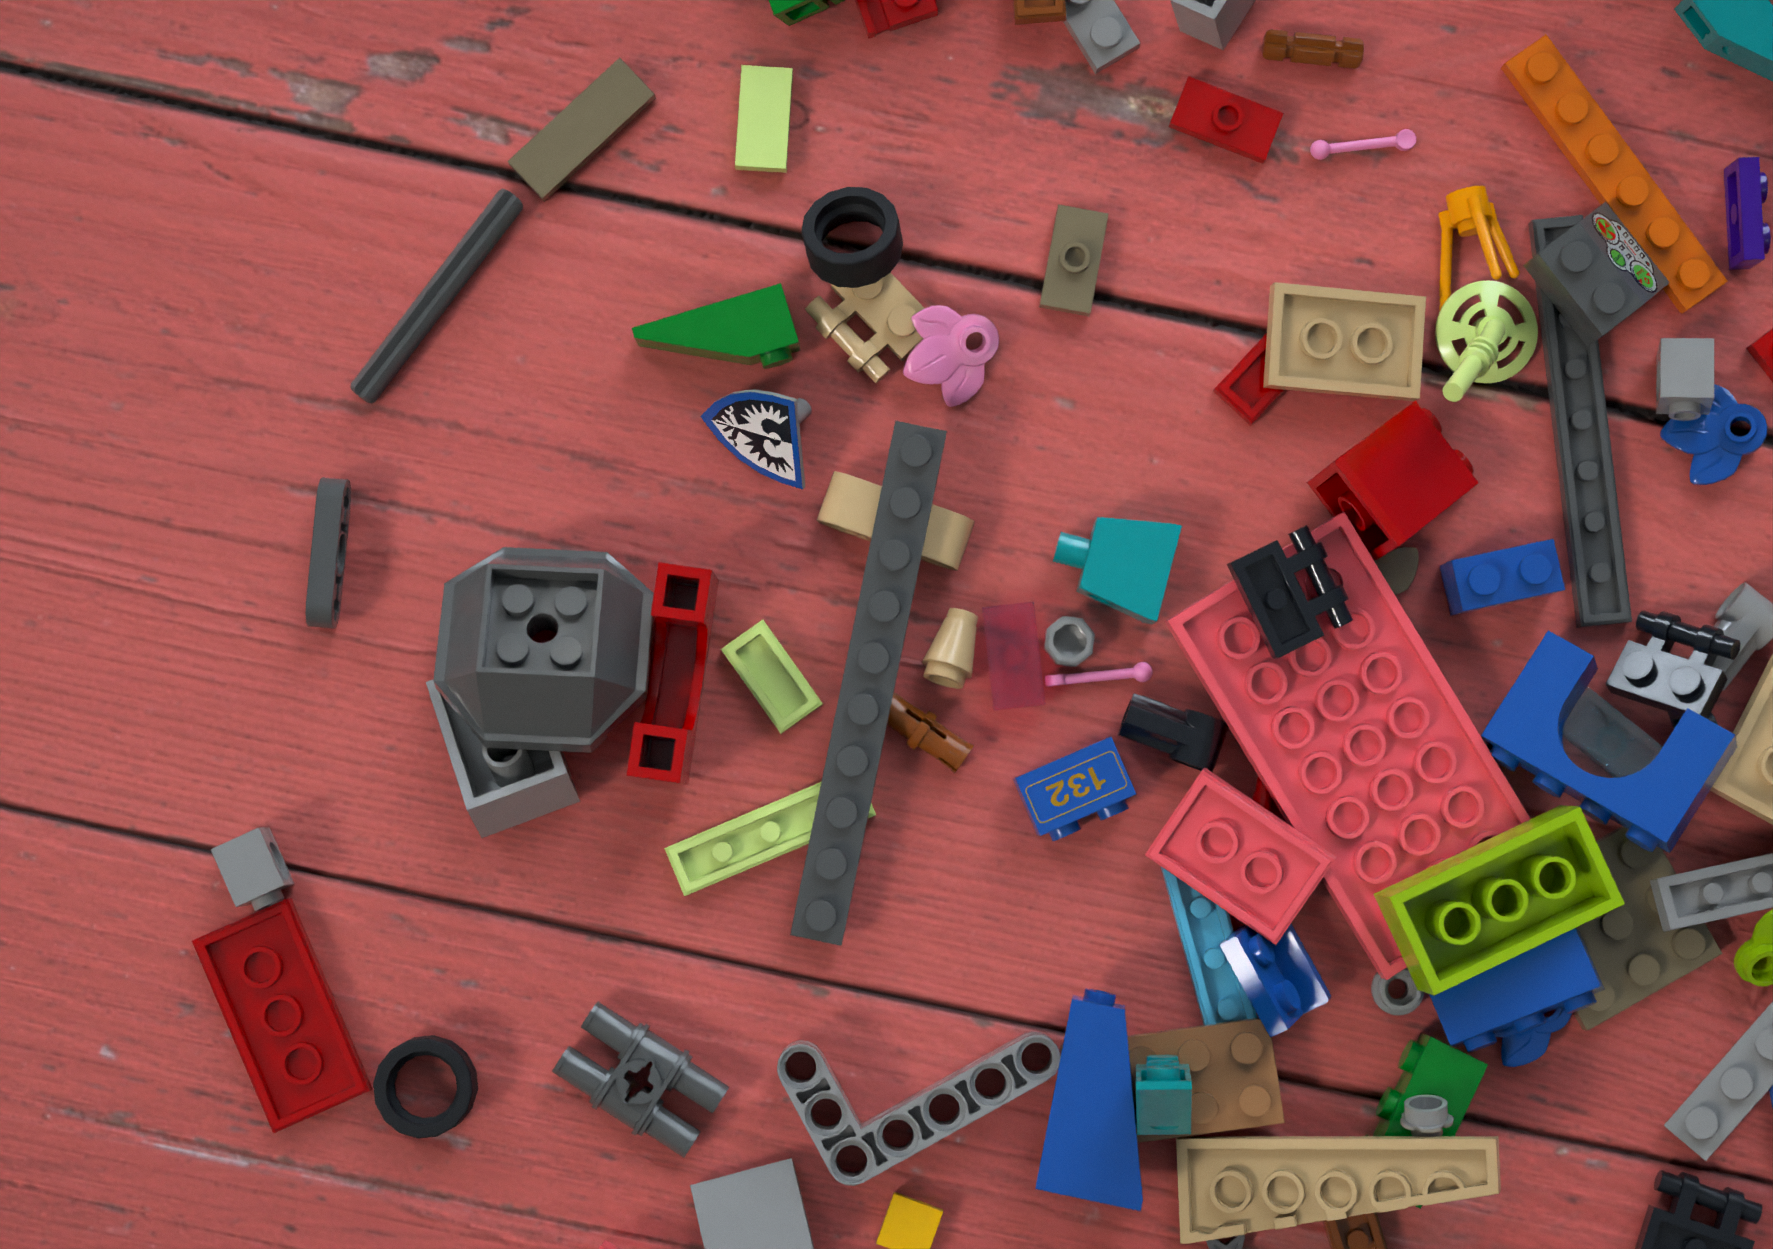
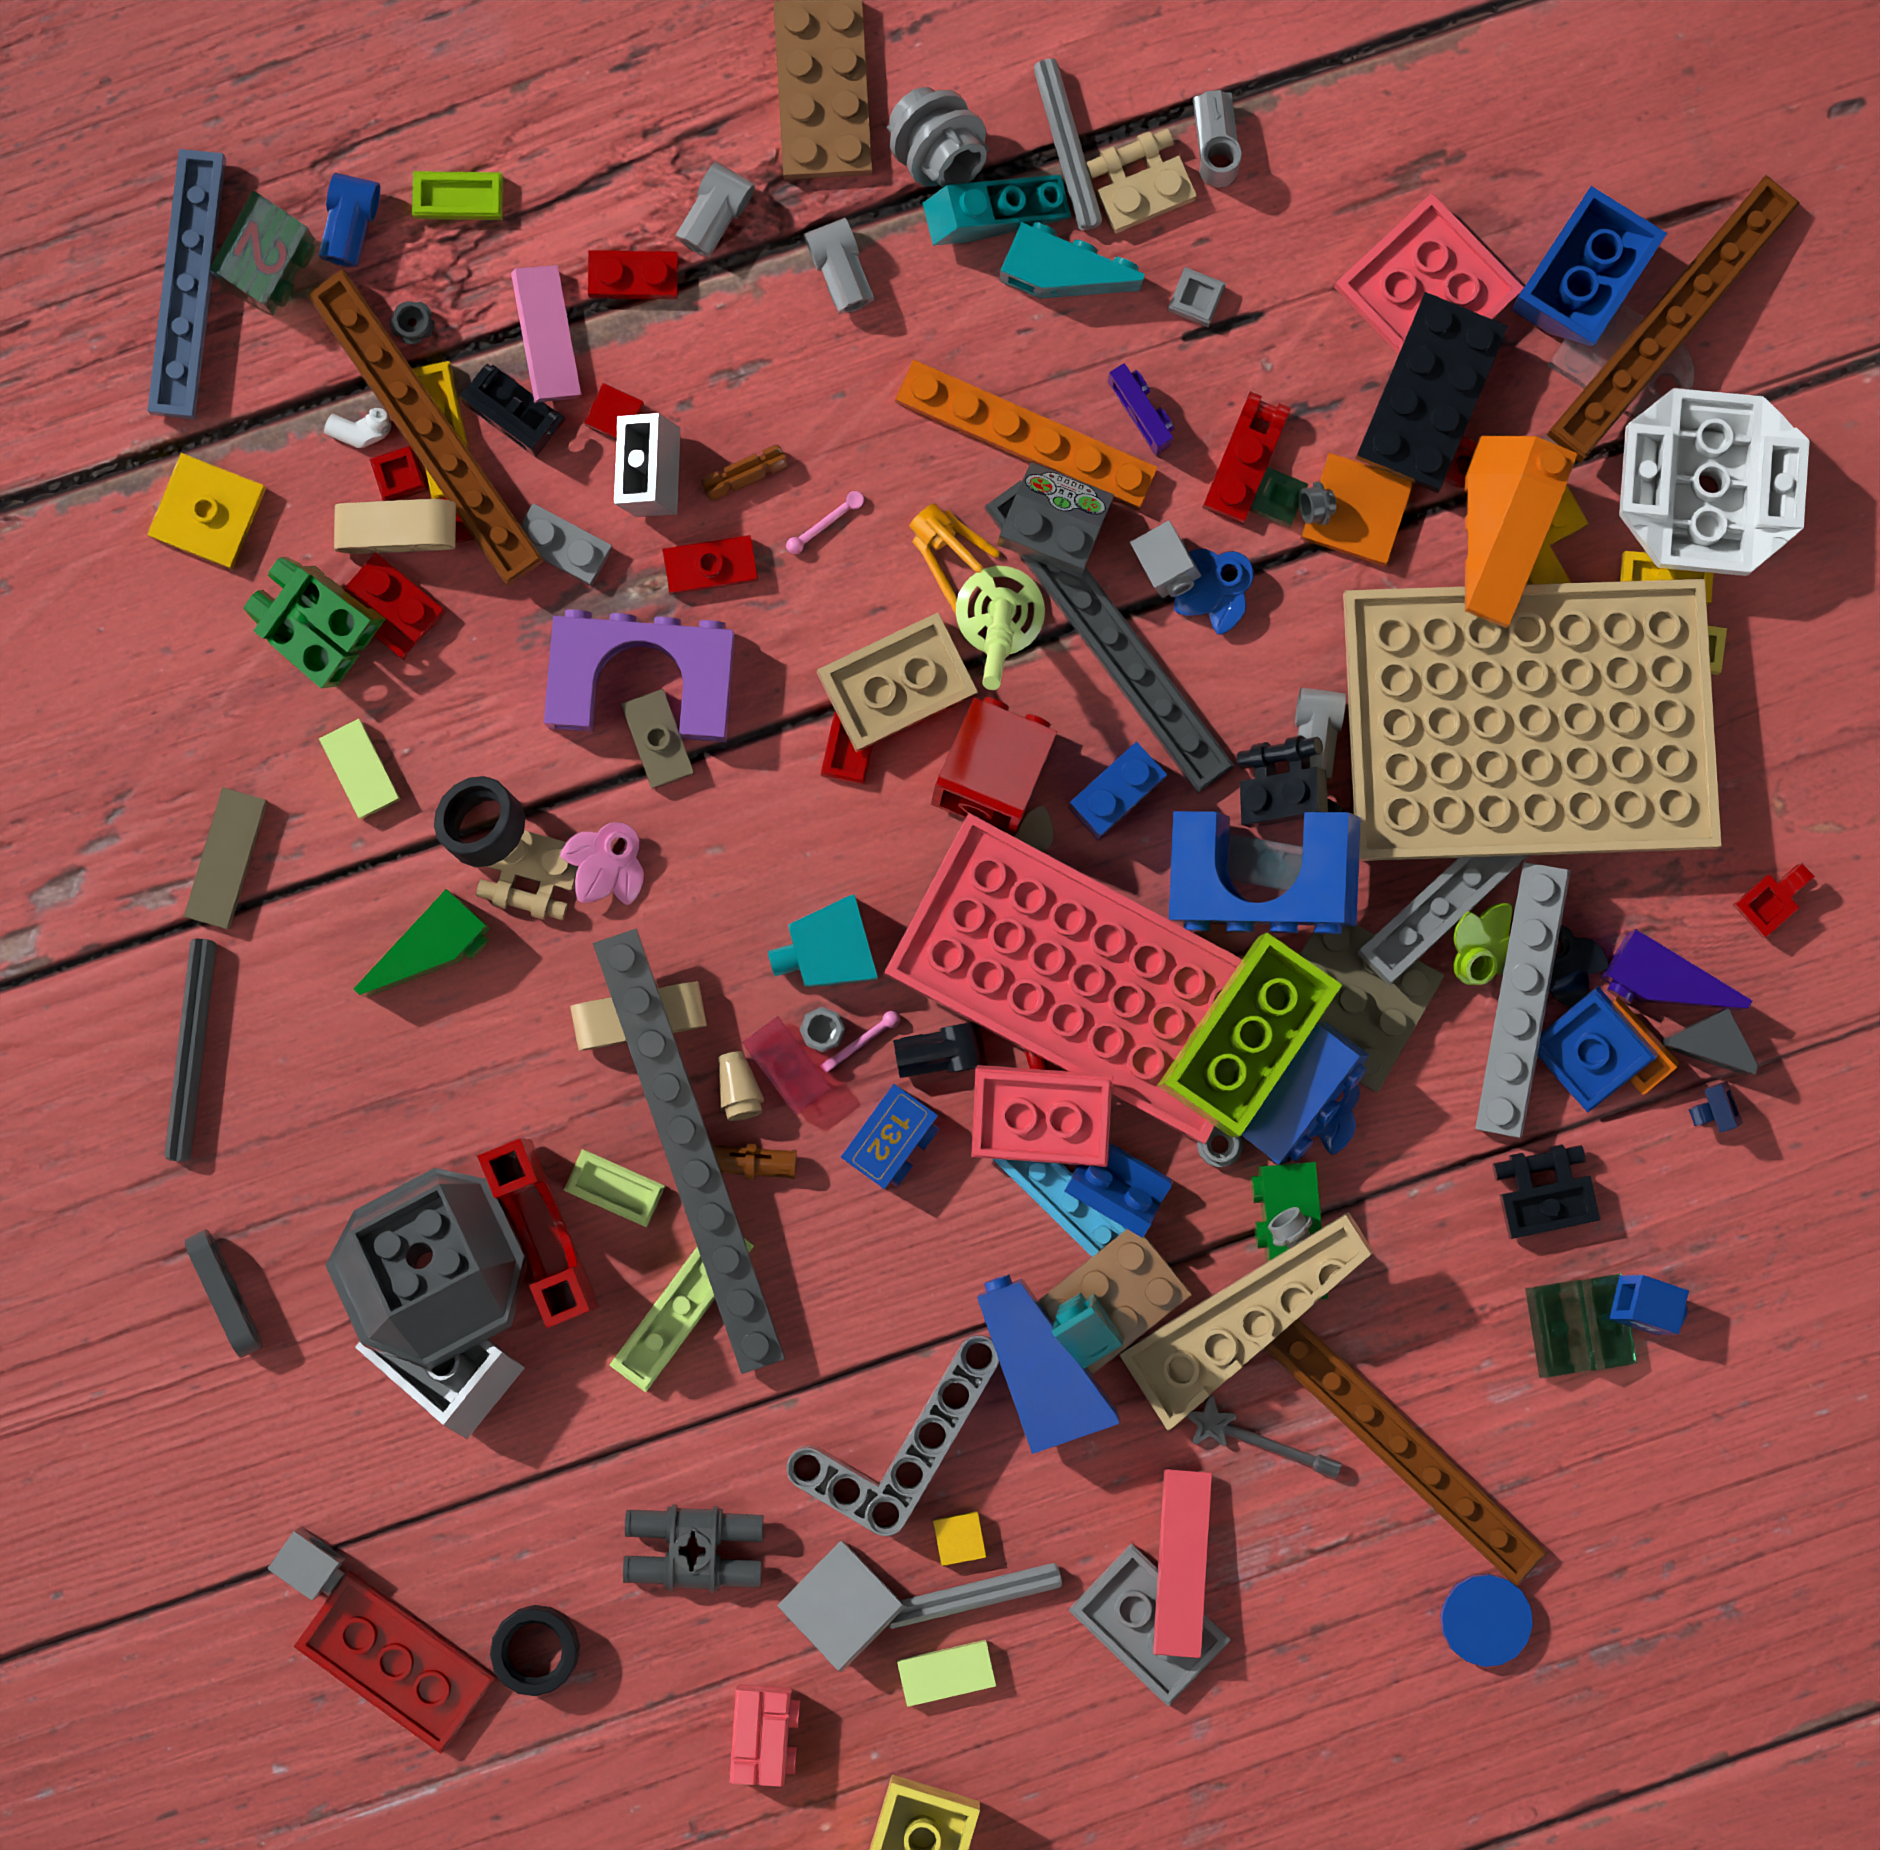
camera: 30 degrees left, 0 degrees up
(762, 432) = (498, 1008): shield -> none
(1060, 126) = (585, 646): none -> medium lavender arch
(1276, 598) = (955, 909): black plate -> none

